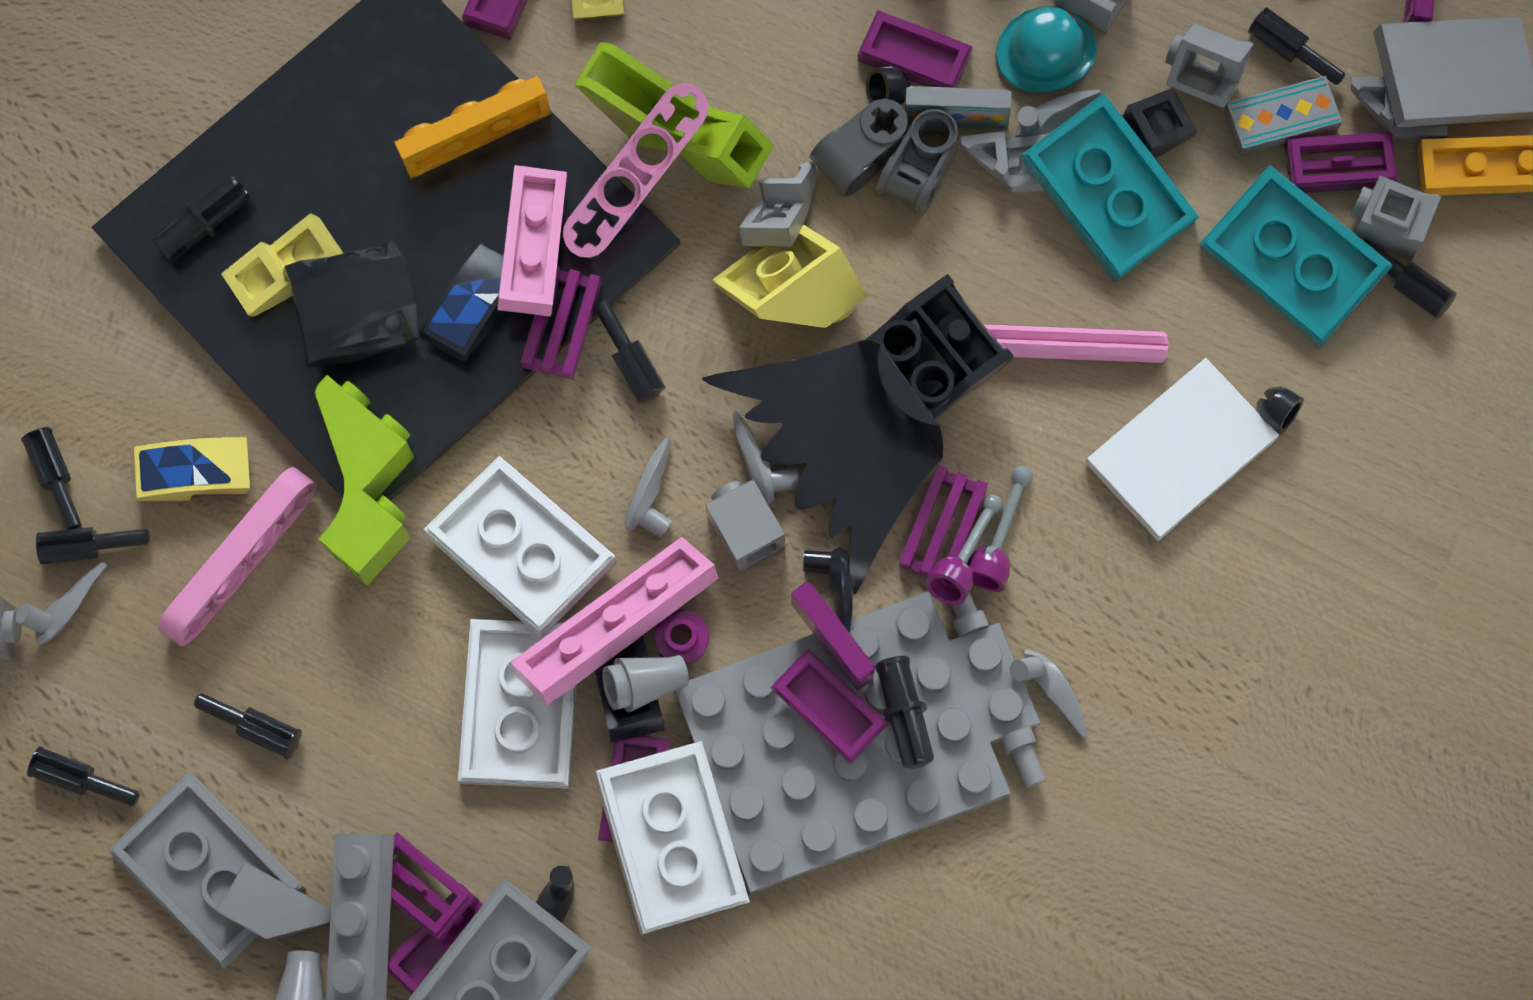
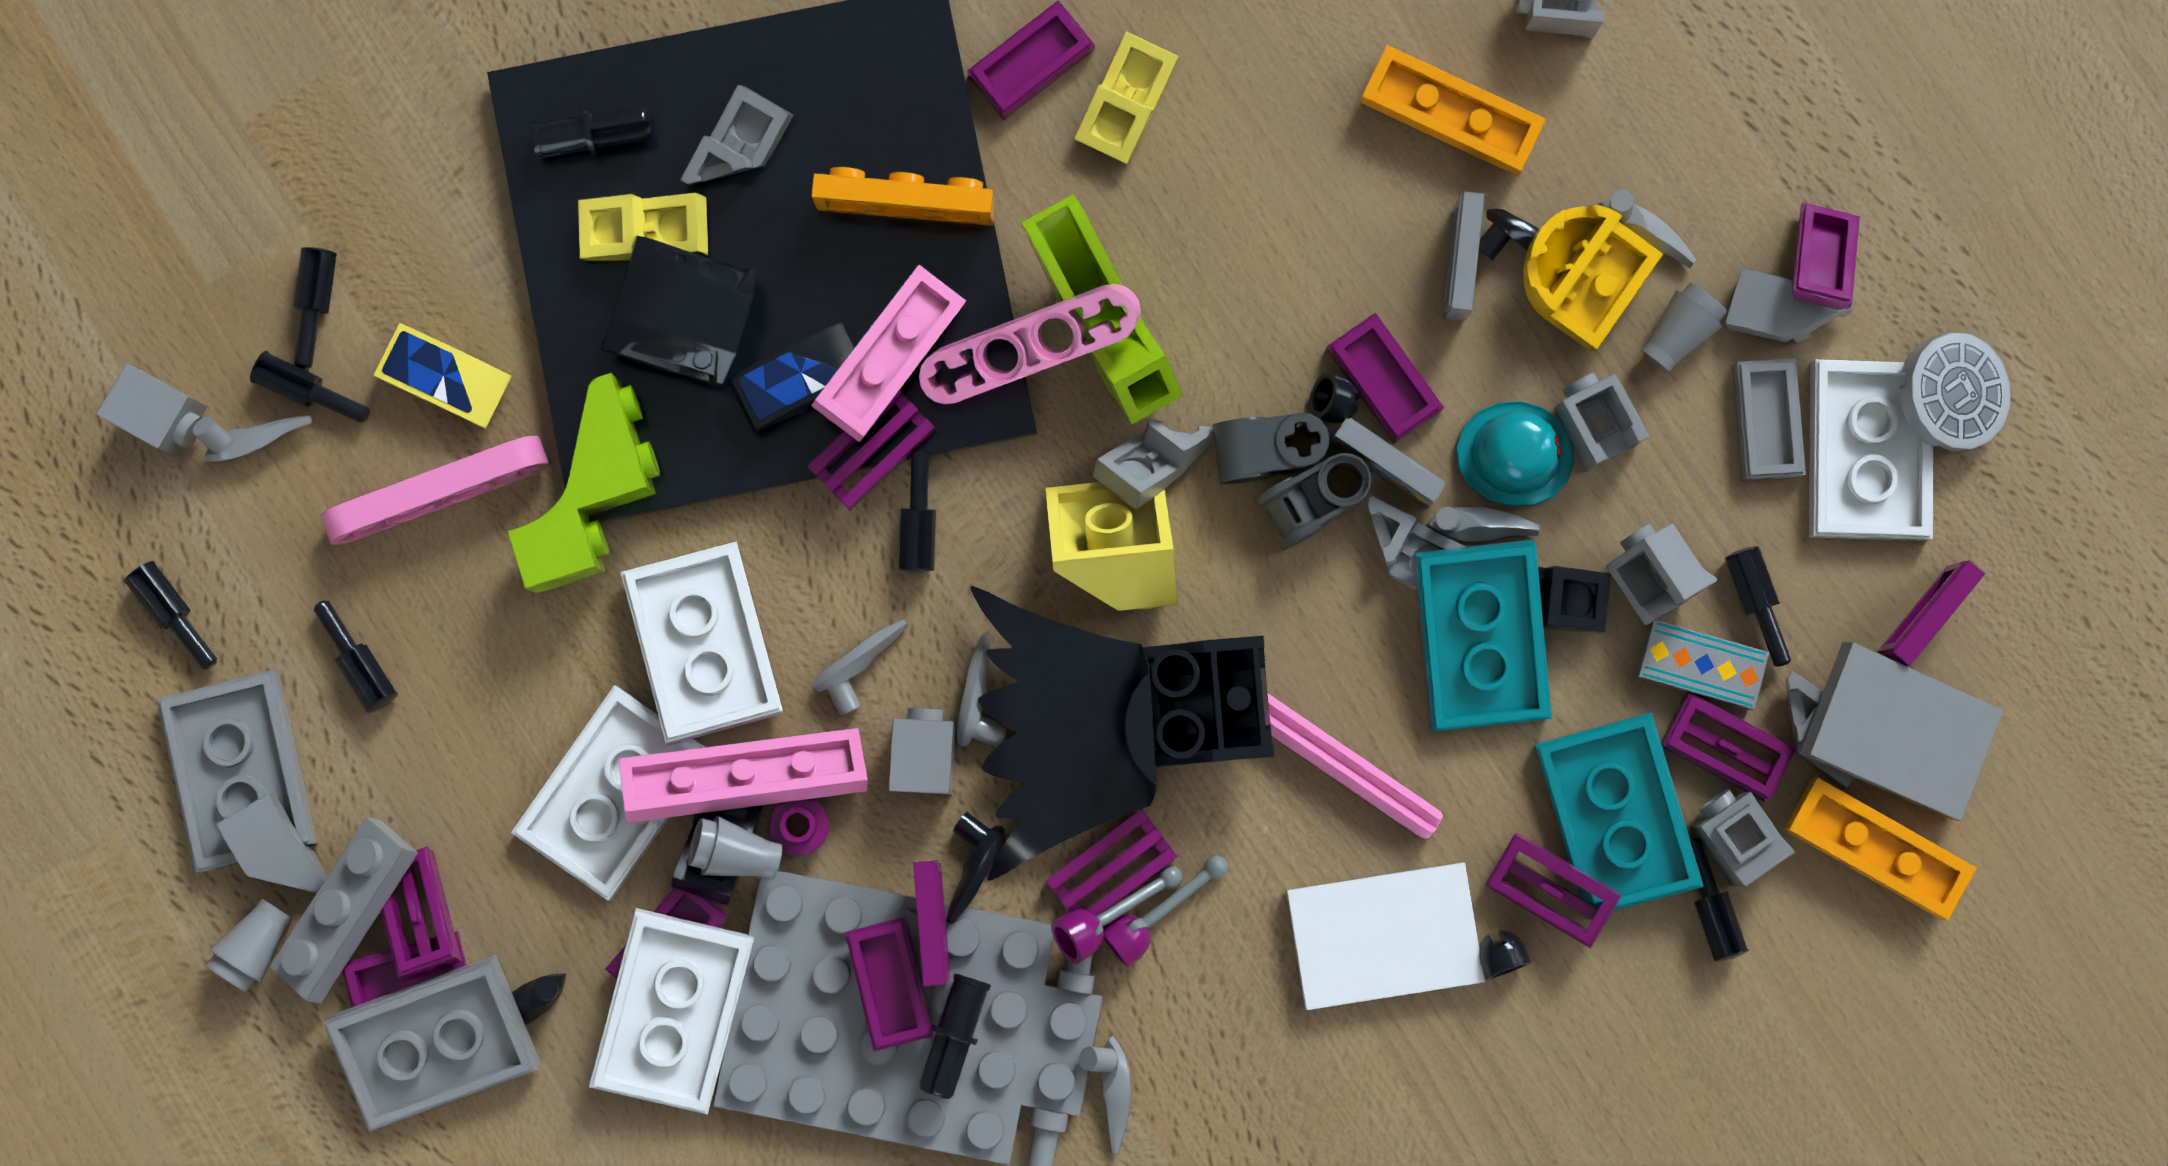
camera: 30 degrees right, 10 degrees up
(320, 159) = (741, 138): none -> light grey slope
(1330, 333) = (1598, 915): none -> magenta tile

